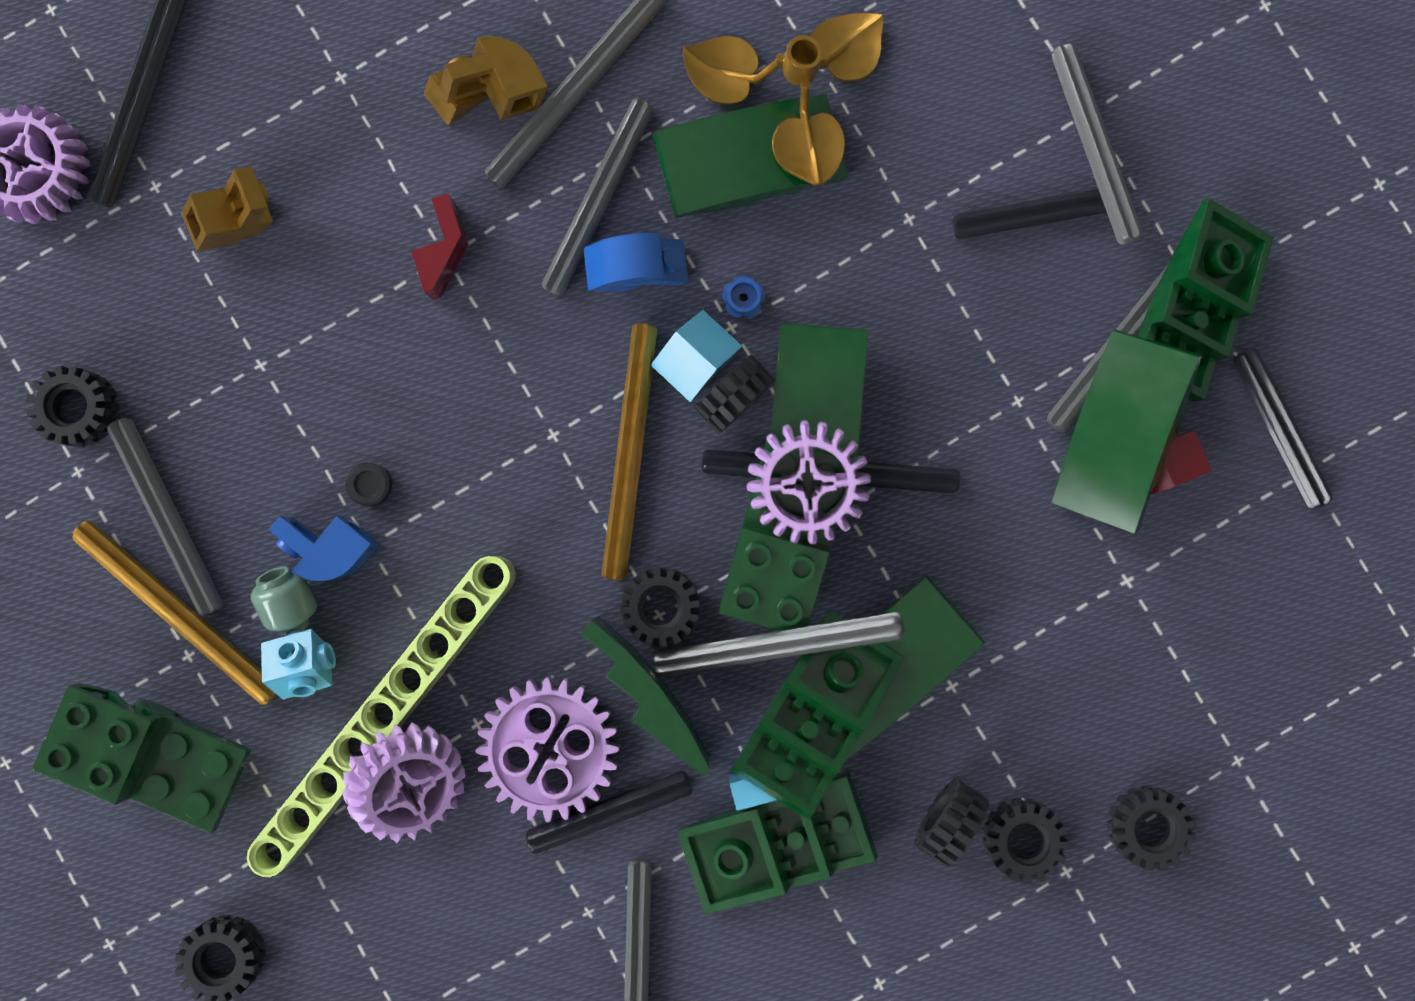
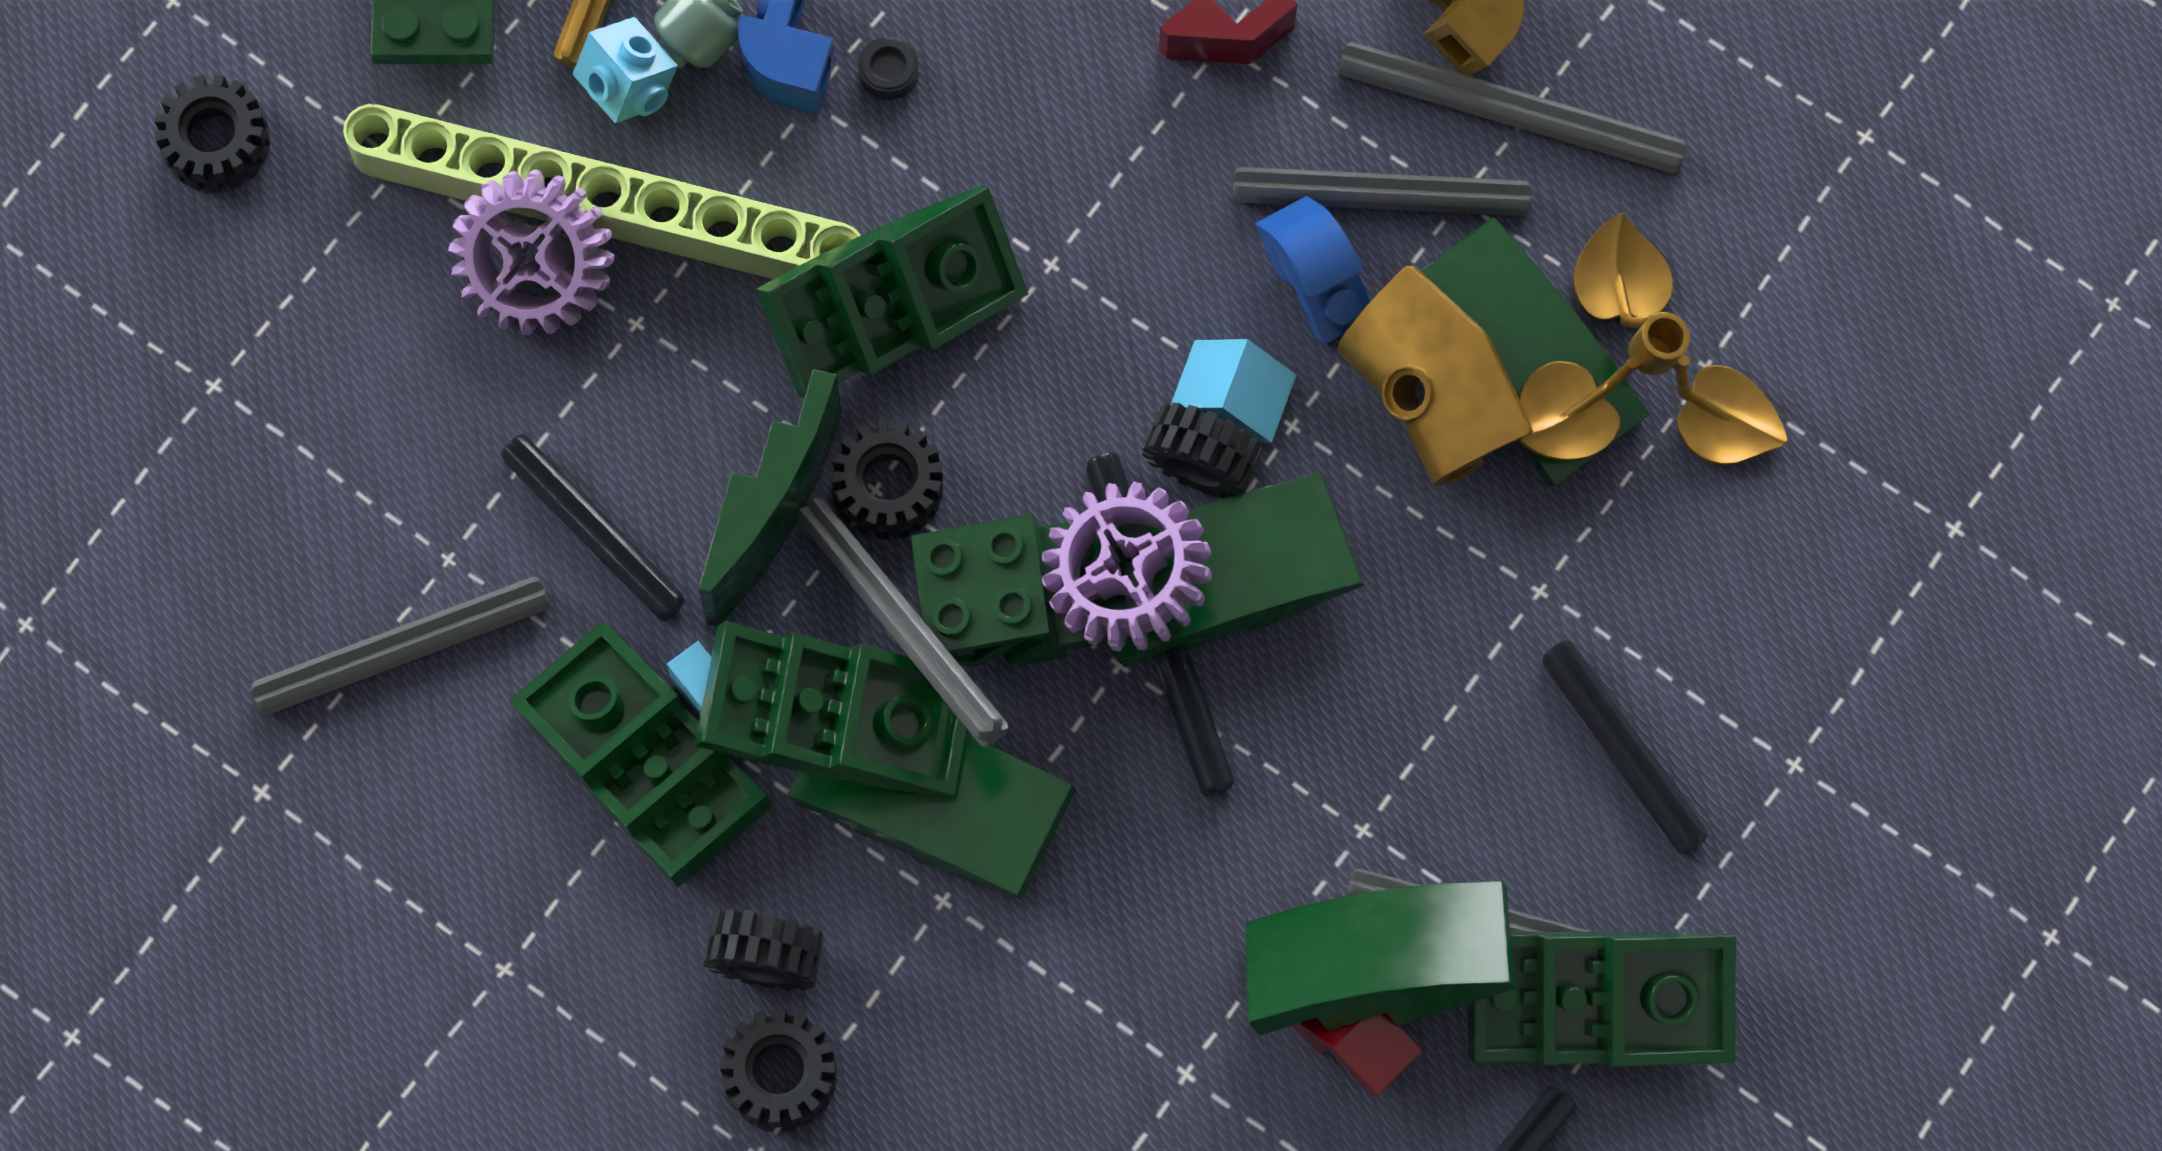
camera: 65 degrees right, 15 degrees down
(514, 729) = (635, 466): lavender gear -> none
(535, 550) = (894, 290): none -> dark green slope
(629, 452) = (1070, 362): pearl gold axle -> none
(747, 286) = (1336, 405): blue plate -> none
(777, 203) = (1469, 400): none -> pearl gold panel
(1097, 144) = (1746, 777): axle -> none

